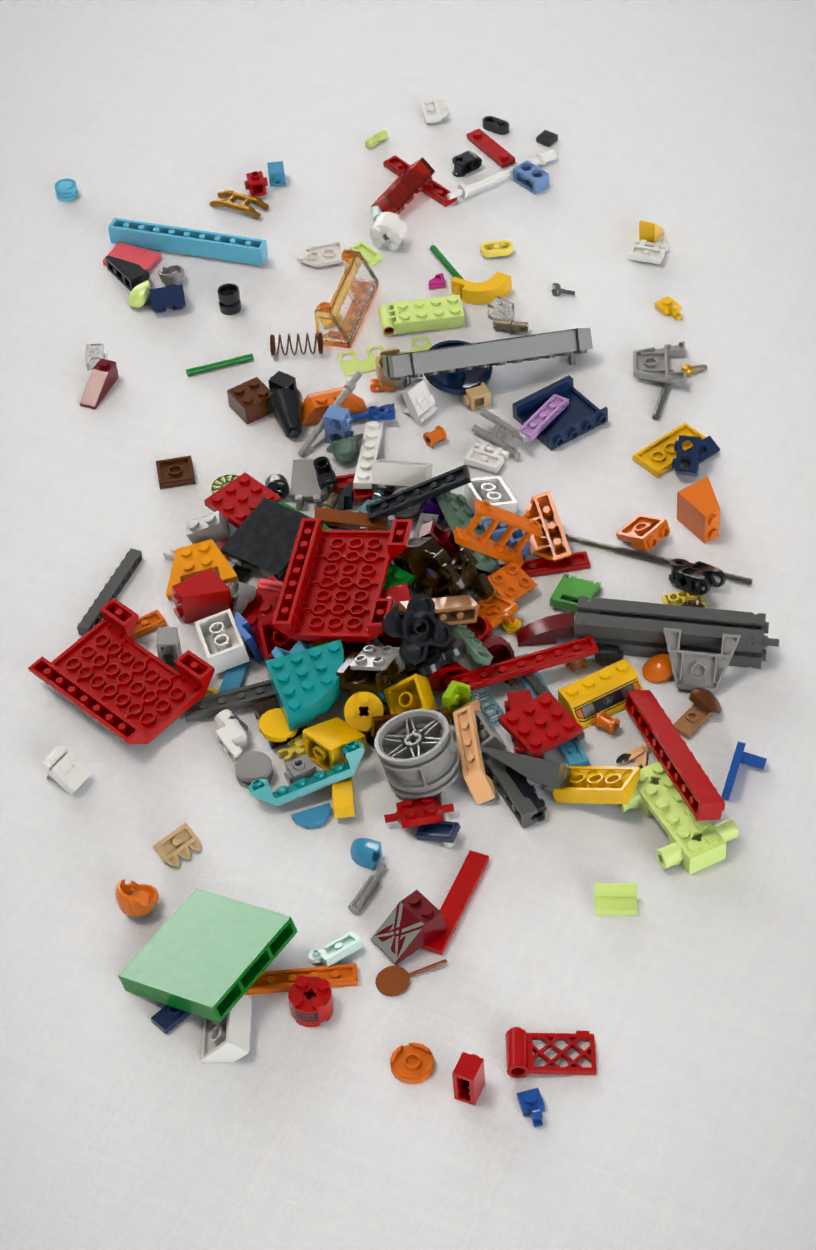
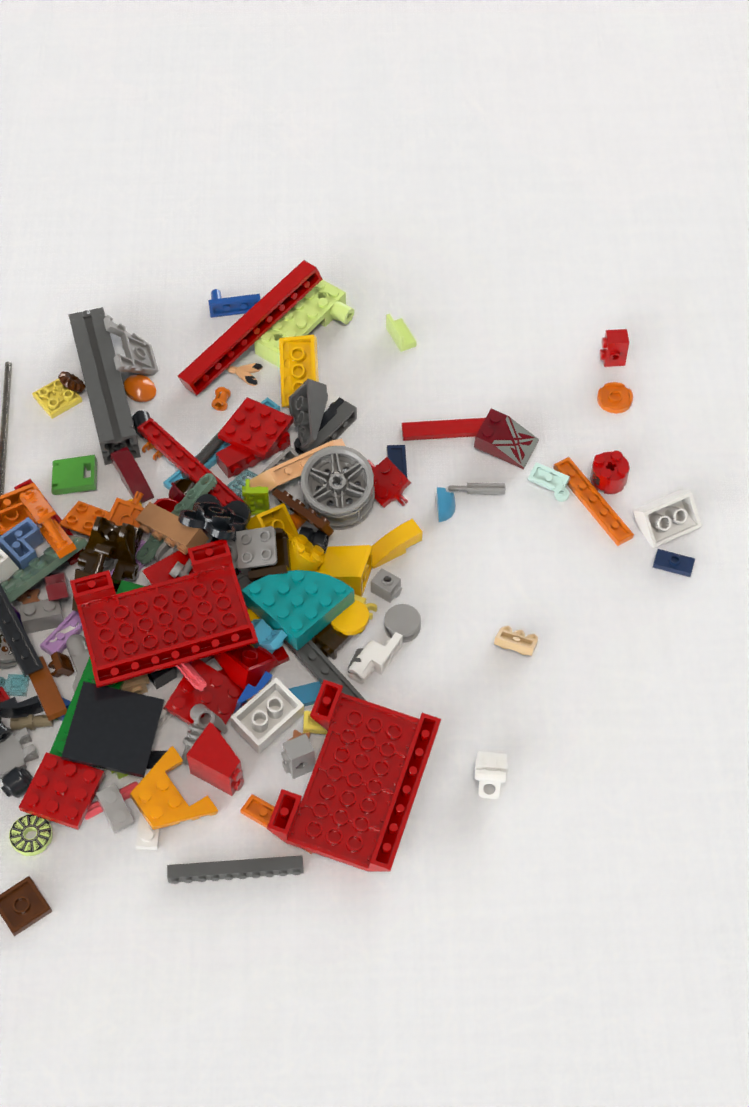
camera: 120 degrees left, 10 degrees up
(135, 898) = (593, 635): orange piece -> none
(208, 954) = (621, 548): brick -> none
(312, 817) = (426, 558): dark azure tile -> none
(353, 753) = (396, 565): teal slope -> none
(396, 980) = (549, 438): dark orange piece -> none
(521, 1048) = (566, 336): red piece -> none
(532, 1104) = (602, 319): blue plate -> none
(599, 691) = (188, 413): yellow slope -> none
(692, 720) = (187, 350): medium nougat plate -> none
(694, 576) = (25, 392): black piece -> none
(705, 699) = (167, 344): reddish brown hat -> none

